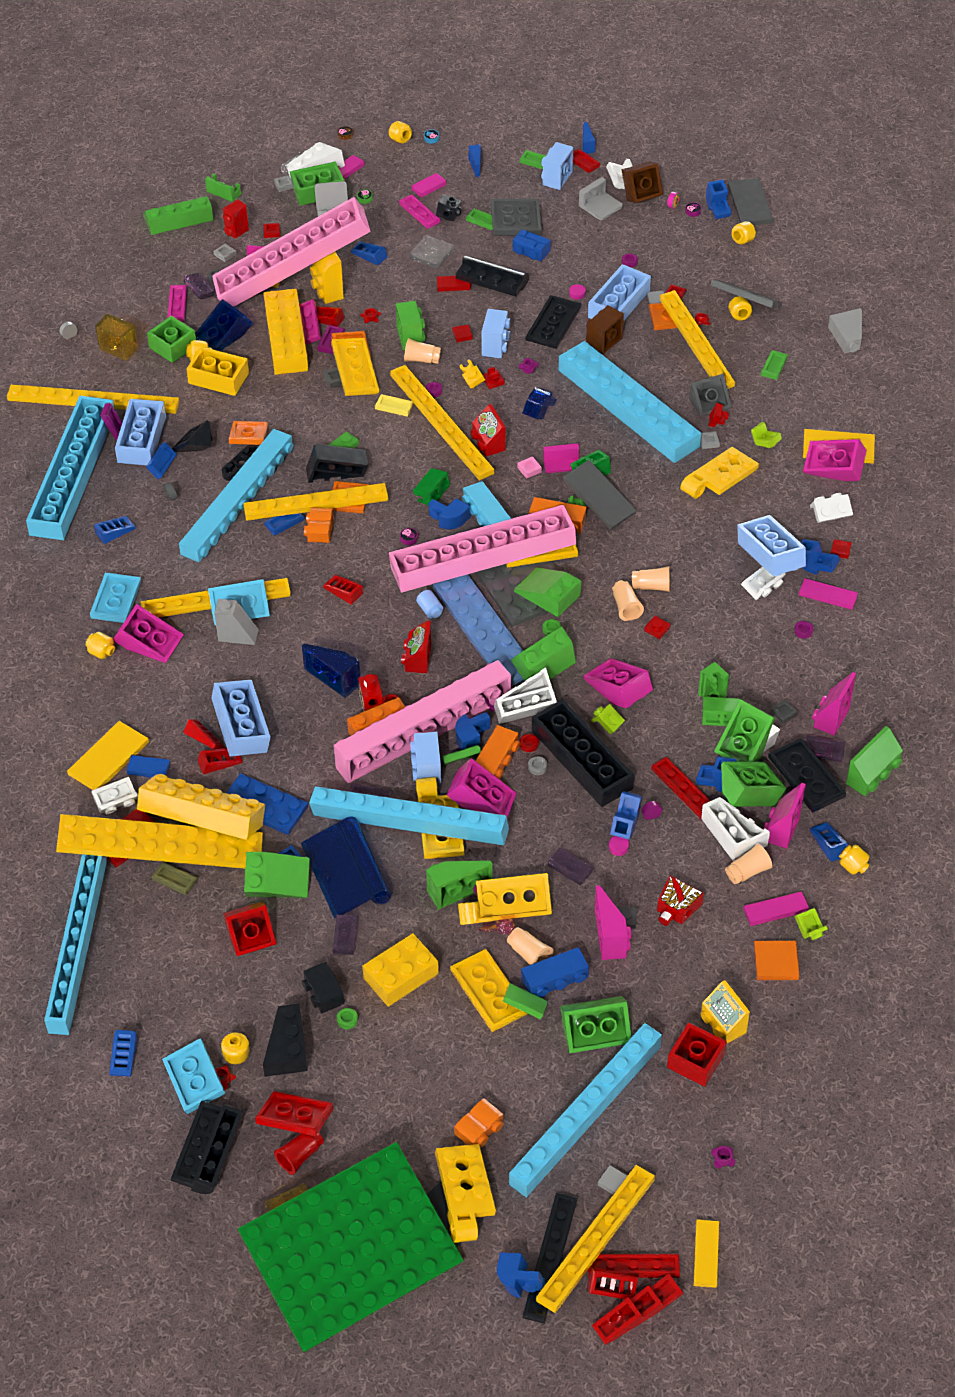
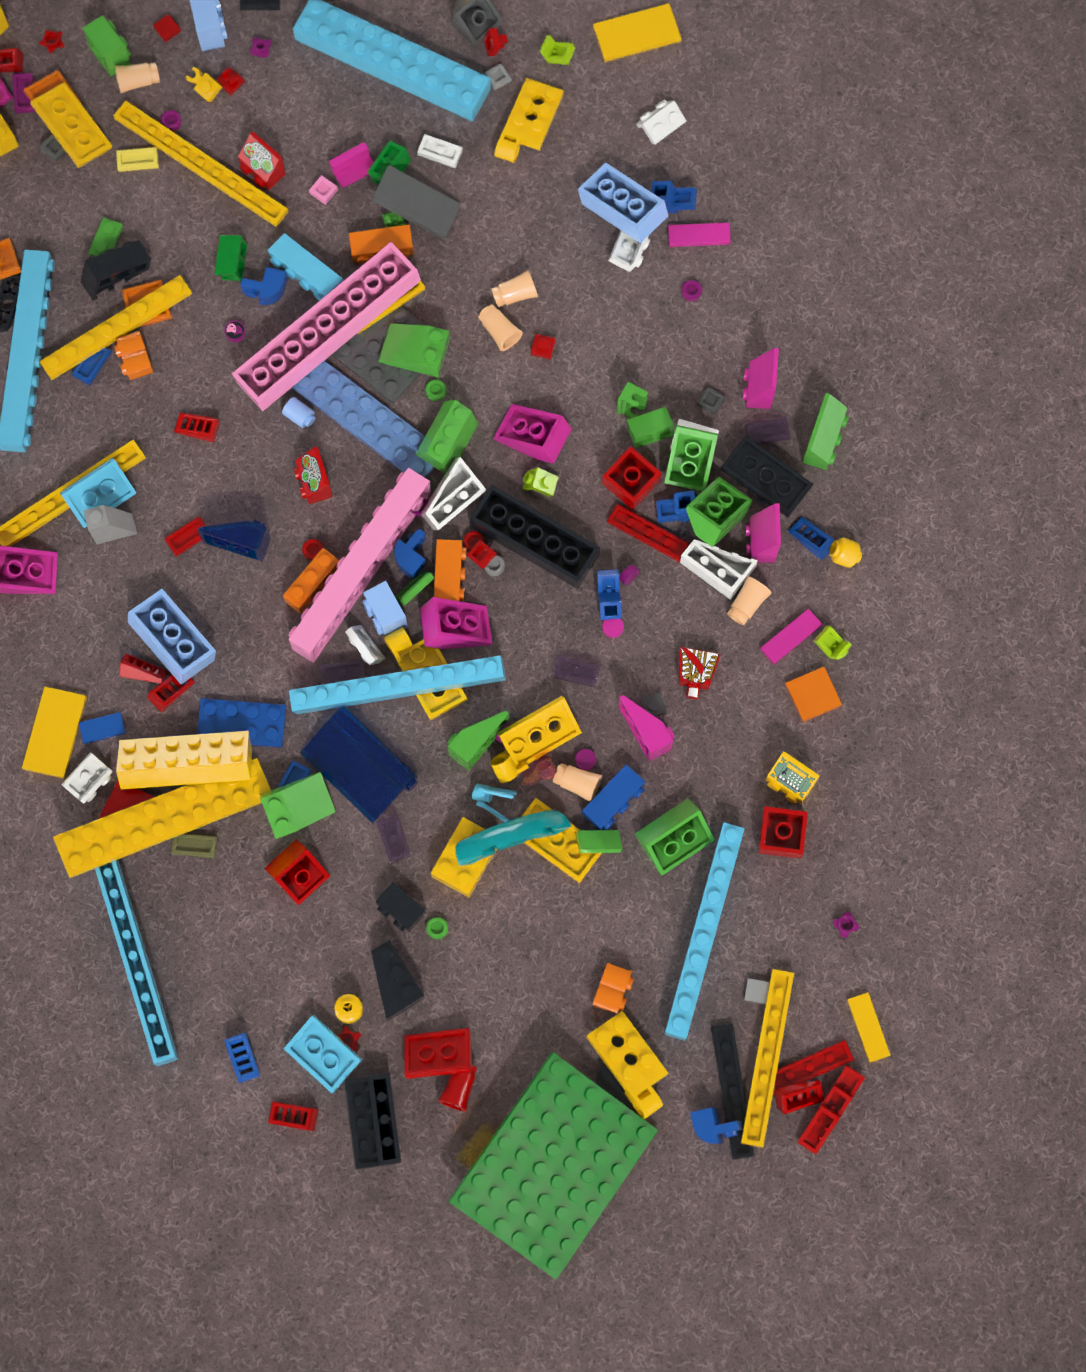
camera: 25 degrees left, 25 degrees up
(150, 1127) = (311, 1117): none -> red slope
(288, 660) = (185, 537): none -> red tile
(369, 689) = (291, 554): red torso -> none
(397, 781) = (361, 640): none -> white plate
(442, 929) = (484, 794): none -> medium azure plant
(447, 955) = (510, 834): none -> teal brick
(530, 750) = (481, 554): none -> red plate
(538, 403) = (297, 100): clear blue brick -> none
(545, 935) = (585, 760): none -> magenta tile
(637, 471) = (440, 151): none -> white plate
(687, 739) = (631, 478): none -> red brick
(836, 459) = (642, 56): dark pink slope -> none
(841, 548) = (690, 170): red tile -> none

